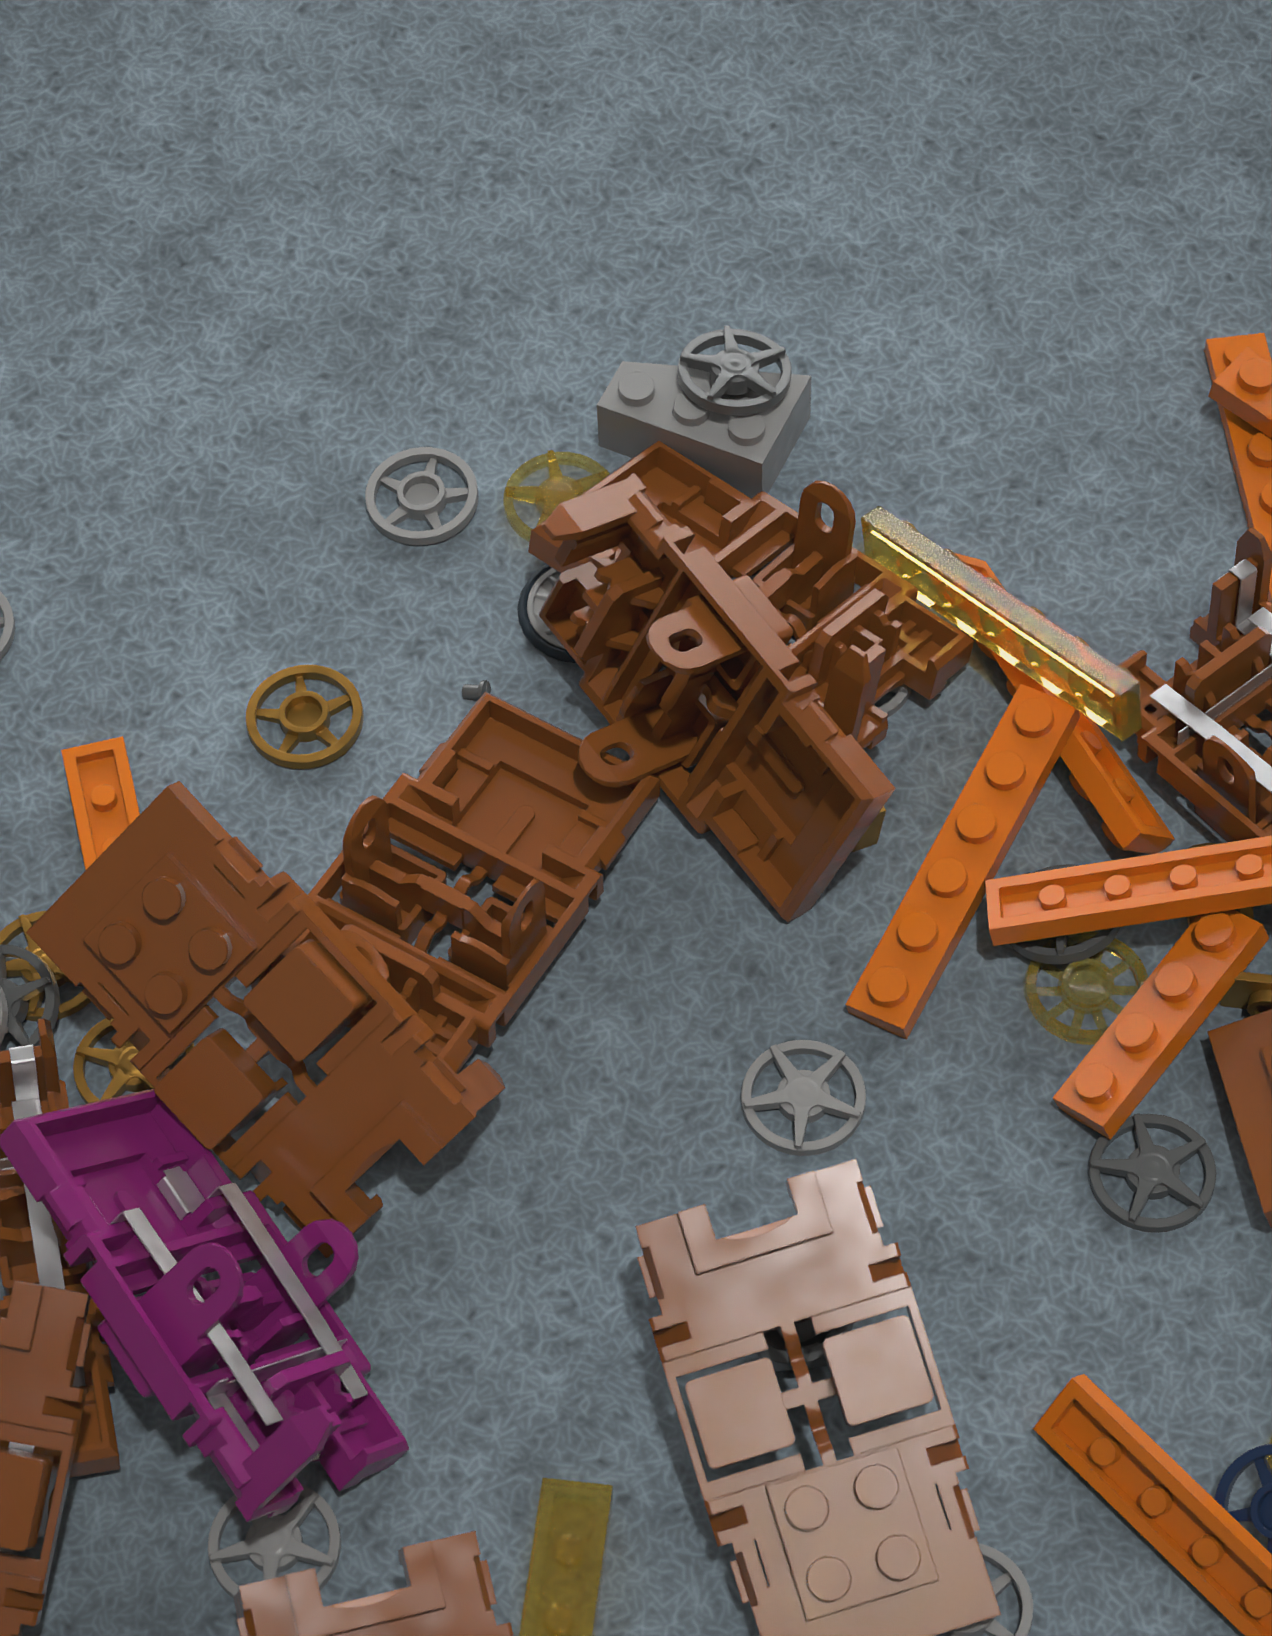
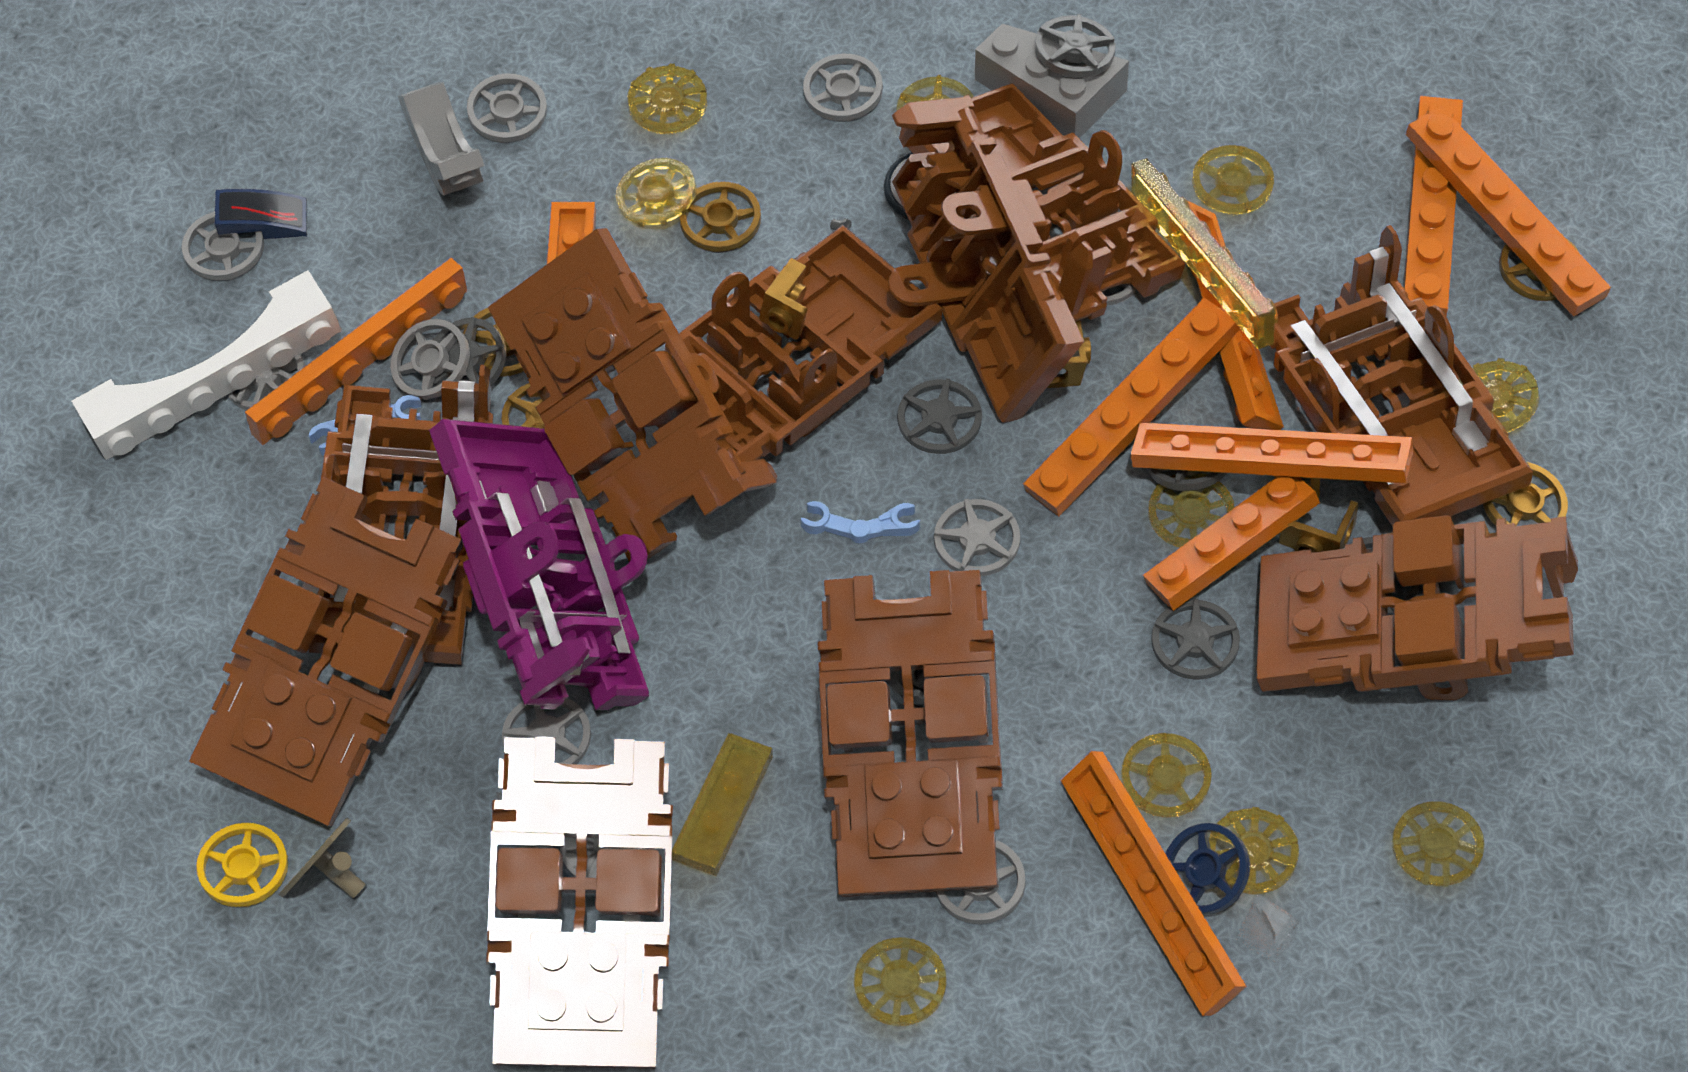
camera: 15 degrees right, 0 degrees up
(181, 565) = (667, 99): none -> clear yellow wheel
(205, 702) = (656, 192): none -> clear yellow wheel
(440, 829) = (782, 301): none -> pearl gold bracket
(635, 1126) = (861, 530): none -> light blue piece
(697, 933) = (939, 416): none -> dark grey wheel
(993, 508) = (1233, 179): none -> clear yellow wheel
(1177, 1382) = (1166, 775): none -> clear yellow wheel

